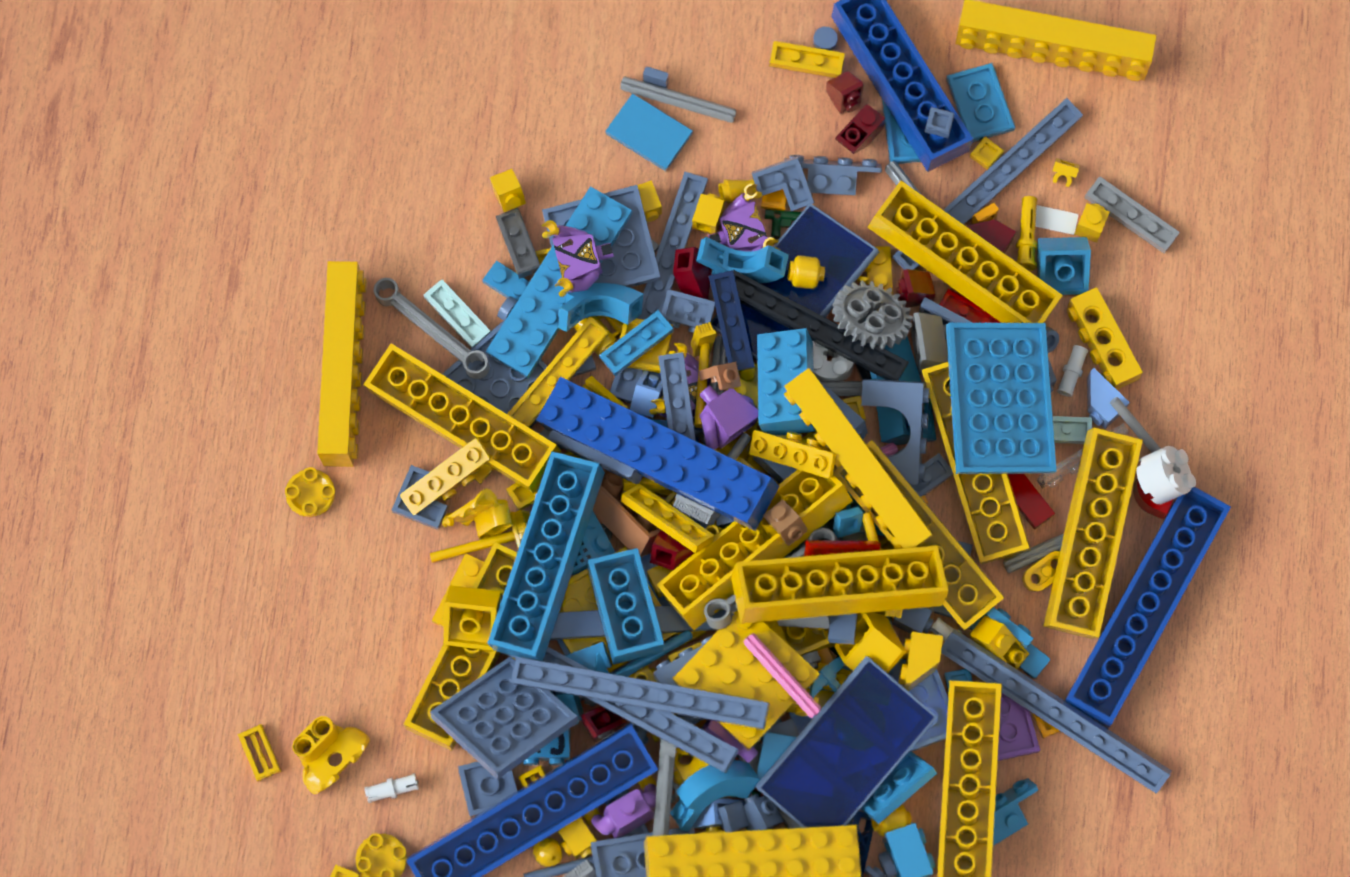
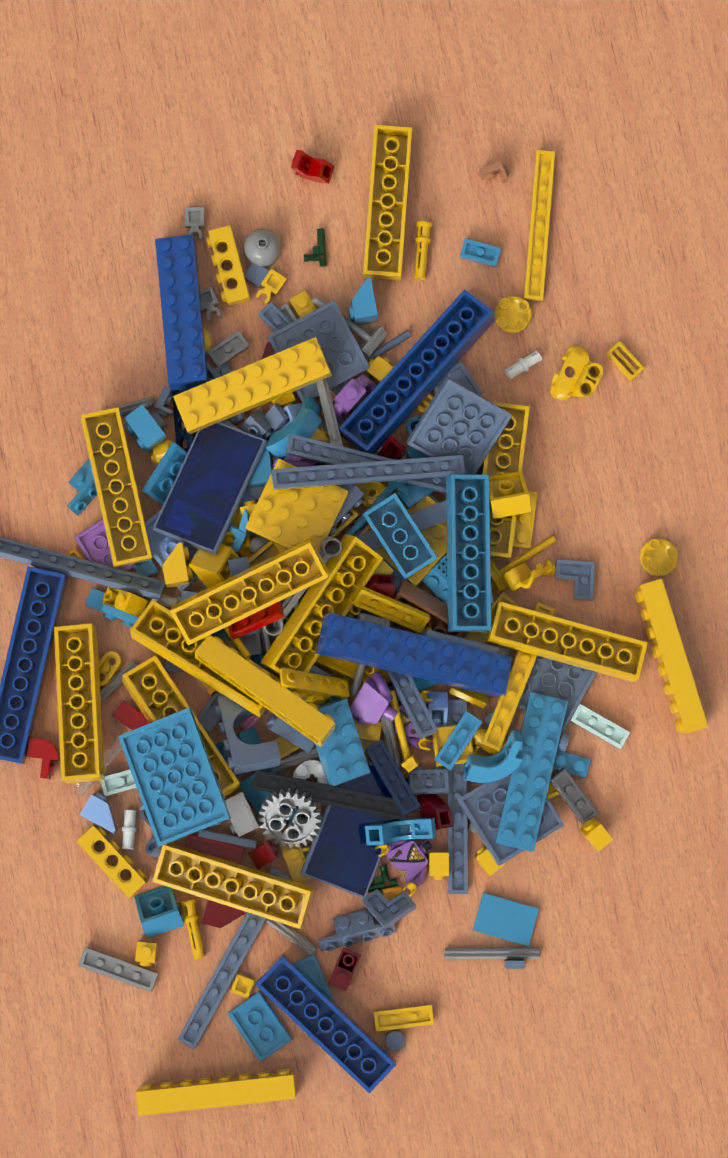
camera: 155 degrees right, 10 degrees up
(431, 328) = (615, 708): light grey piece -> none
(446, 477) = (562, 593): yellow bracket -> none
(547, 852) = (396, 353): yellow piece -> none
(576, 257) = (523, 788): medium lavender torso -> none
(724, 374) = (386, 734): nougat bracket -> none
(731, 189) = (424, 892): yellow cone -> none
(782, 675) = (271, 515): bright pink axle -> none
(786, 522) = (303, 626): medium nougat bracket -> none
(805, 272) = (350, 836): yellow head -> none
(845, 92) = (365, 998): dark red slope -> none
(847, 522) = (259, 647): dark azure plate -> none
(939, 122) = (284, 988): sand blue tile -> none
(986, 214) = (229, 931): light orange tile -> none
(1056, 220) = (175, 949): white sticker -> none
(1066, 169) = (178, 990): yellow tile -> none
(1134, 424) = (70, 798): light grey bar -> none
(1165, 474) = (37, 760): white brick -> none

